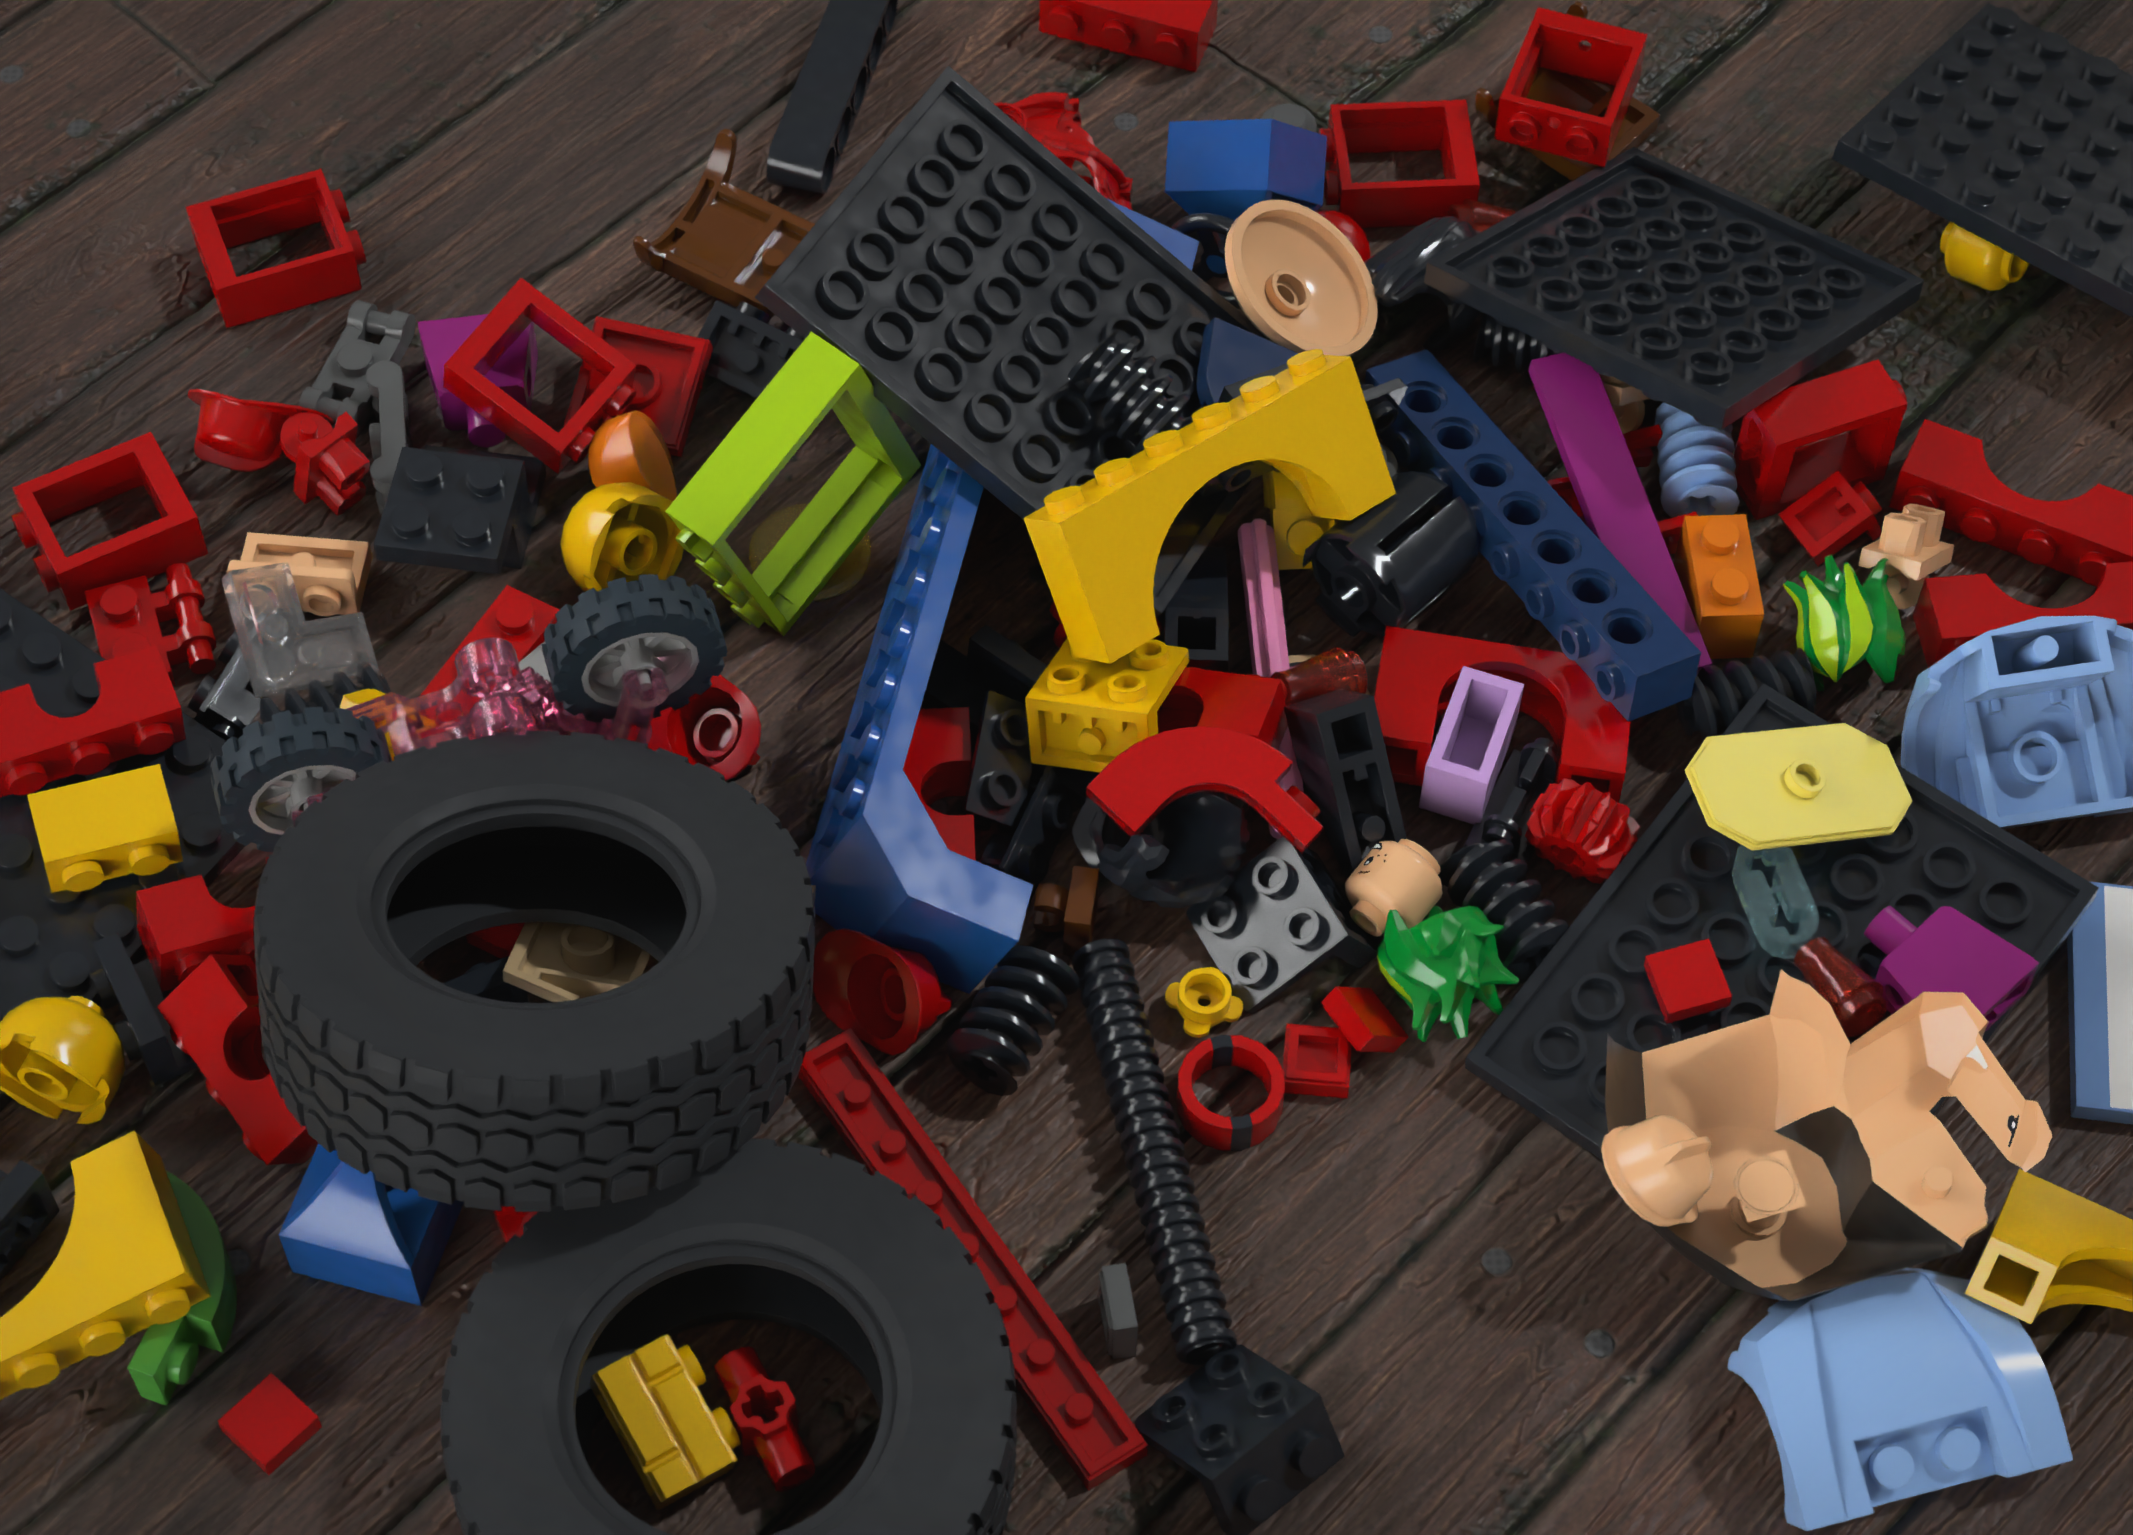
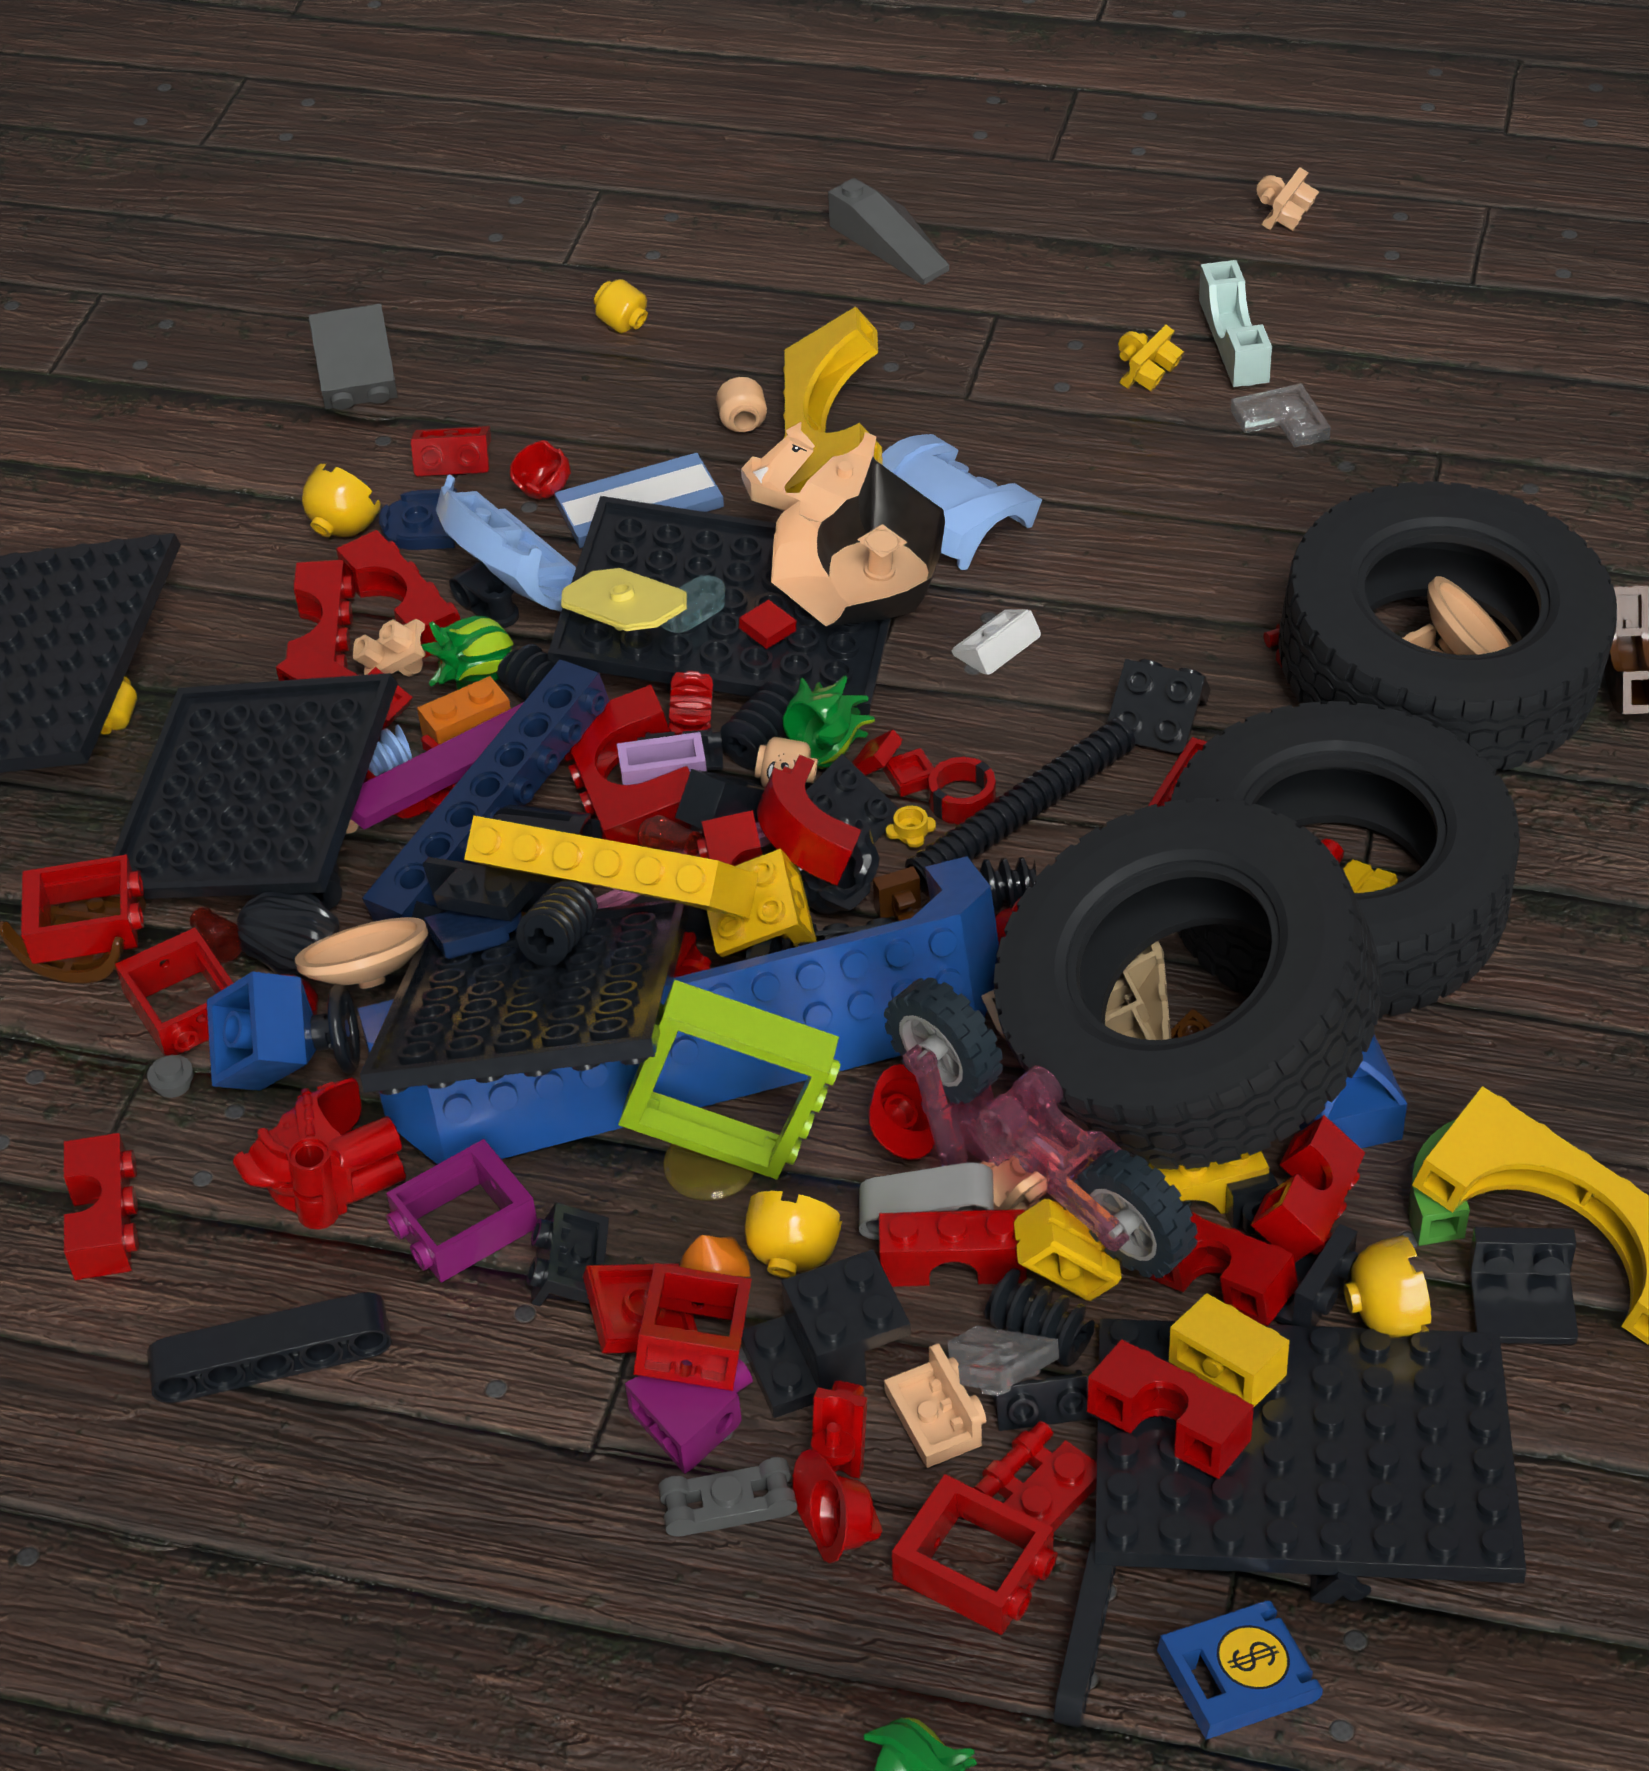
camera: 115 degrees left, 10 degrees down
(268, 212) = (692, 1637): red window -> none
(269, 1424) = (1499, 1079): red tile -> none
(394, 425) = (776, 1425): dark grey plate -> none
(725, 236) = (470, 1326): reddish brown piece -> none
(1117, 1311) = (1131, 772): dark grey tile -> none
(1530, 1316) = (998, 640): none -> white slope
(1659, 1169) = (907, 561): light nougat piece -> none
(1845, 986) = (738, 558): clear red cone -> none
(1949, 956) = (707, 520): magenta torso -> none

